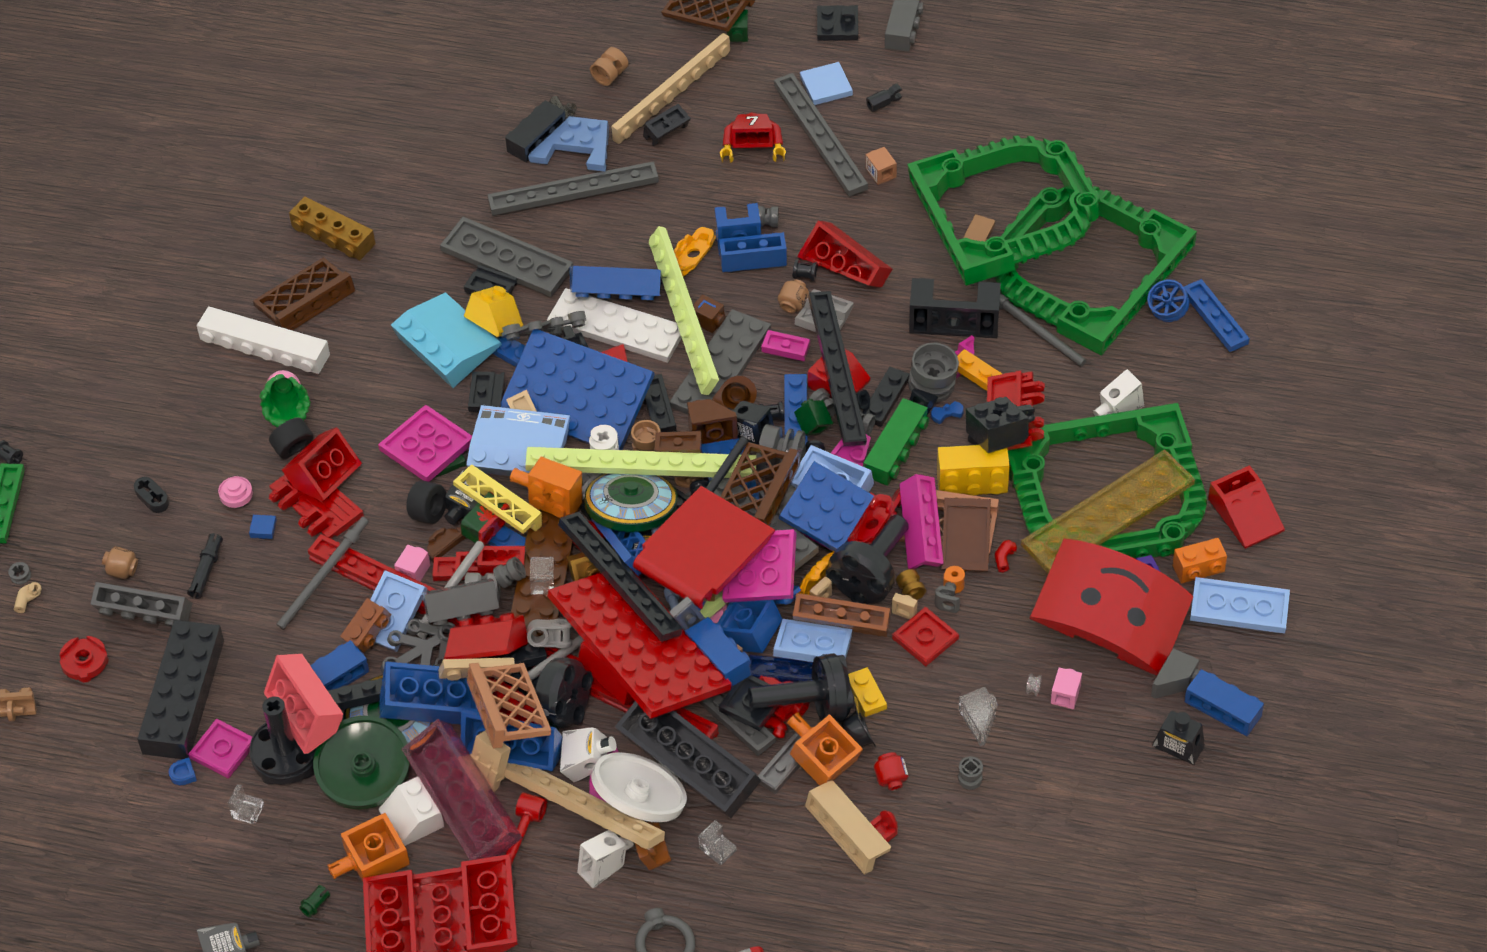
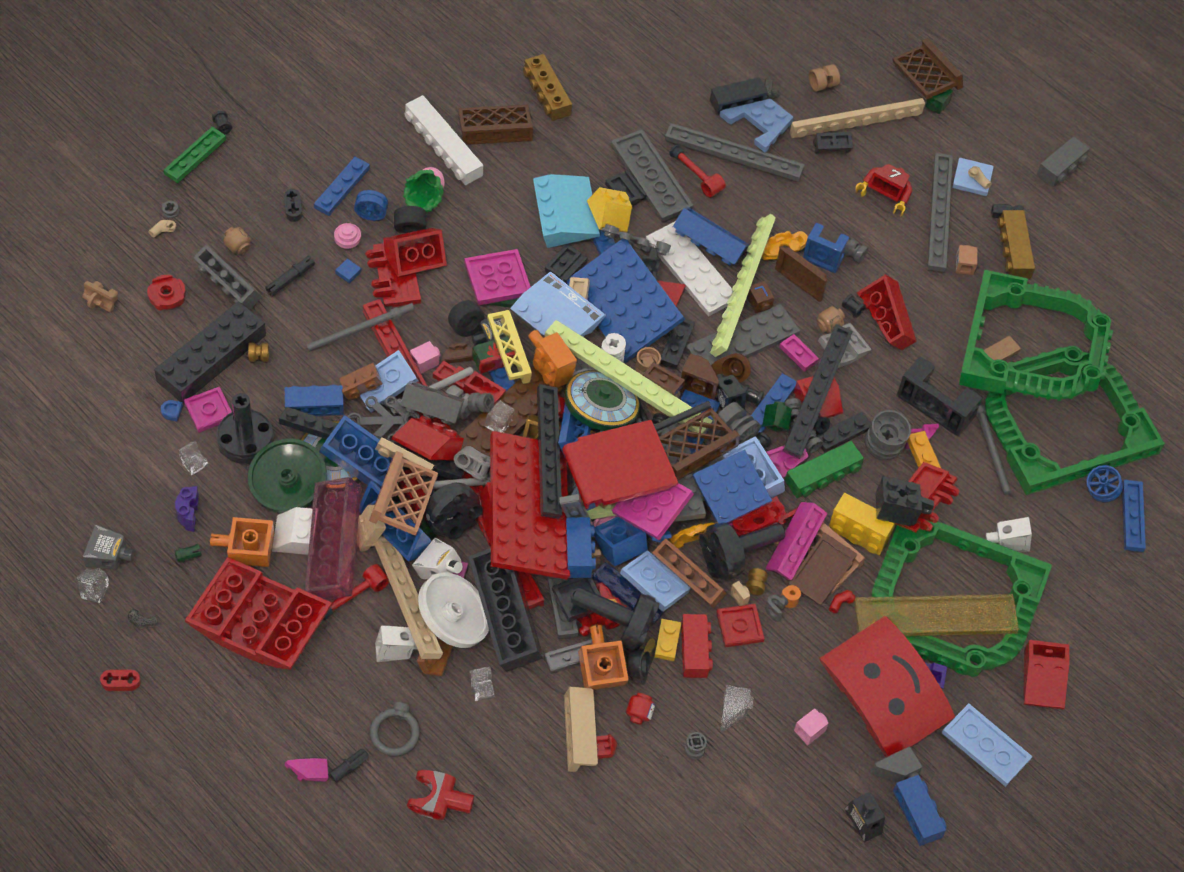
camera: 25 degrees right, 5 degrees up
(188, 446) = (341, 186): none -> blue plate
(232, 660) = (258, 352): none -> pearl gold wheel
(239, 446) = (371, 205): none -> blue wheel
(280, 860) = (185, 506): none -> dark purple cylinder
(308, 704) = (275, 409): coral slope -> none
(575, 232) = (711, 184): none -> red piece
(733, 266) = (801, 273): none -> reddish brown piece
(753, 252) = (838, 274): blue brick -> none
(823, 588) = (689, 547): tan tile -> none
(830, 77) = (976, 173): none -> tan arm
(837, 23) = (1014, 136): black hinge -> none
(899, 680) = (696, 646): none -> red brick
(918, 122) = (1016, 243): none -> pearl gold brick
(923, 398) = (867, 450): black slope -> none
(955, 409) = (873, 468): blue piece -> none
(1033, 684) = (790, 709): clear bush -> none
(1199, 560) = (981, 692): orange brick -> none

